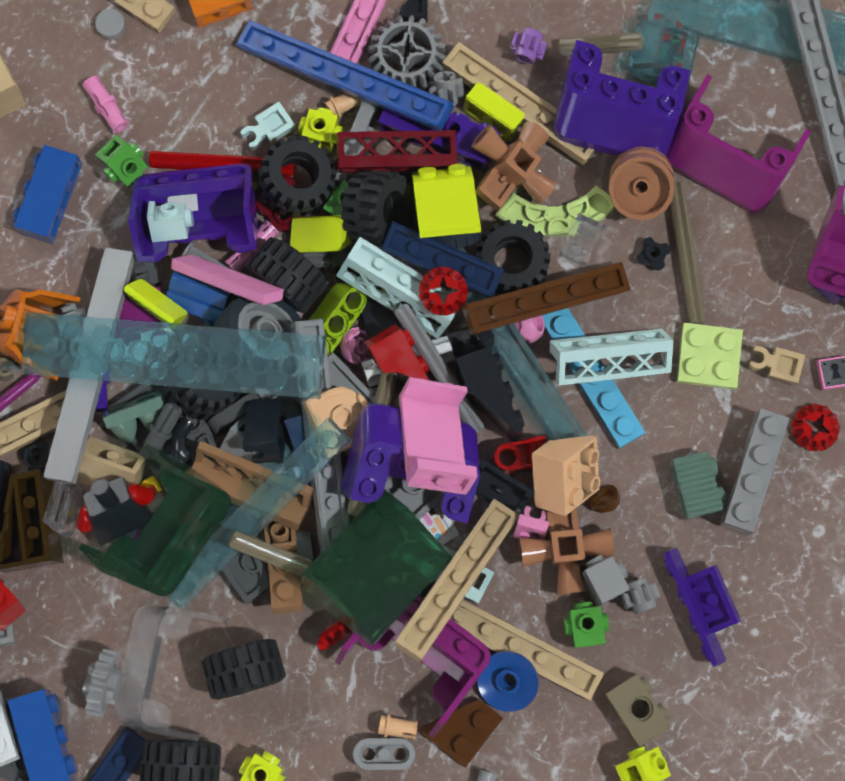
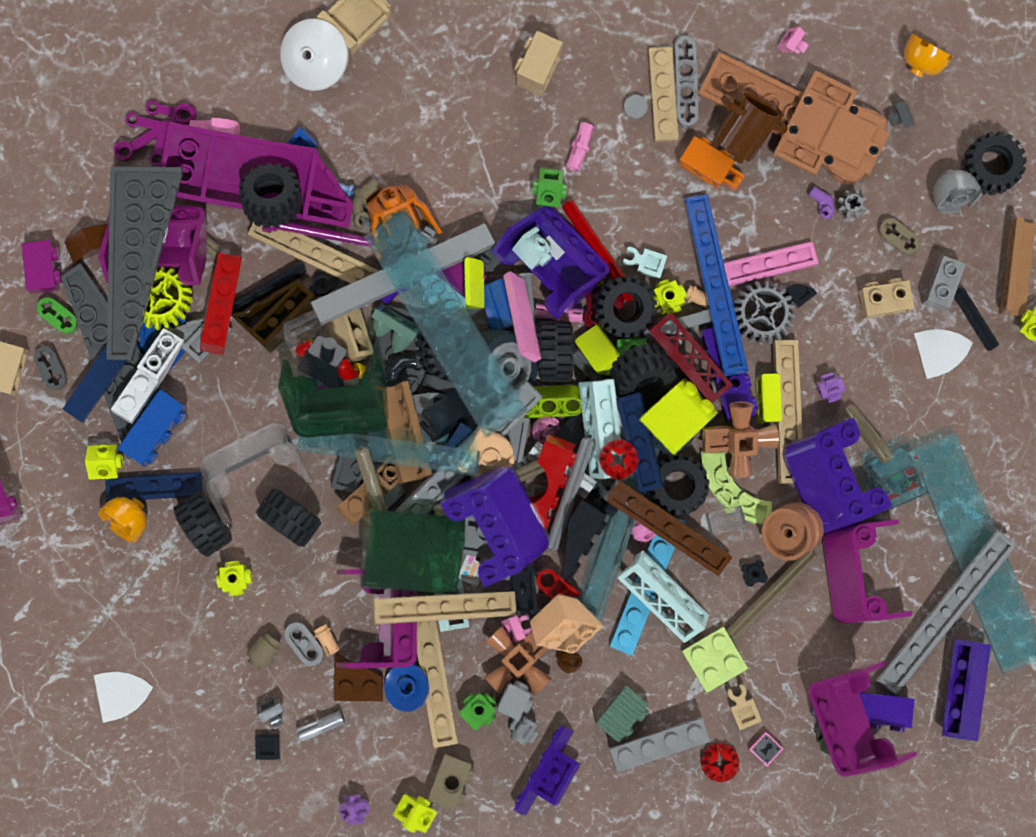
camera: 50 degrees right, 5 degrees up
(47, 194) = (492, 157): blue brick -> none
(102, 683) = (215, 437): light grey gear -> none
(161, 429) = (396, 350): dark grey axle -> none
(333, 635) = (350, 556): red gear -> none
(434, 436) = (519, 525): bright pink panel -> none
(447, 86) = (759, 356): light grey gear -> none

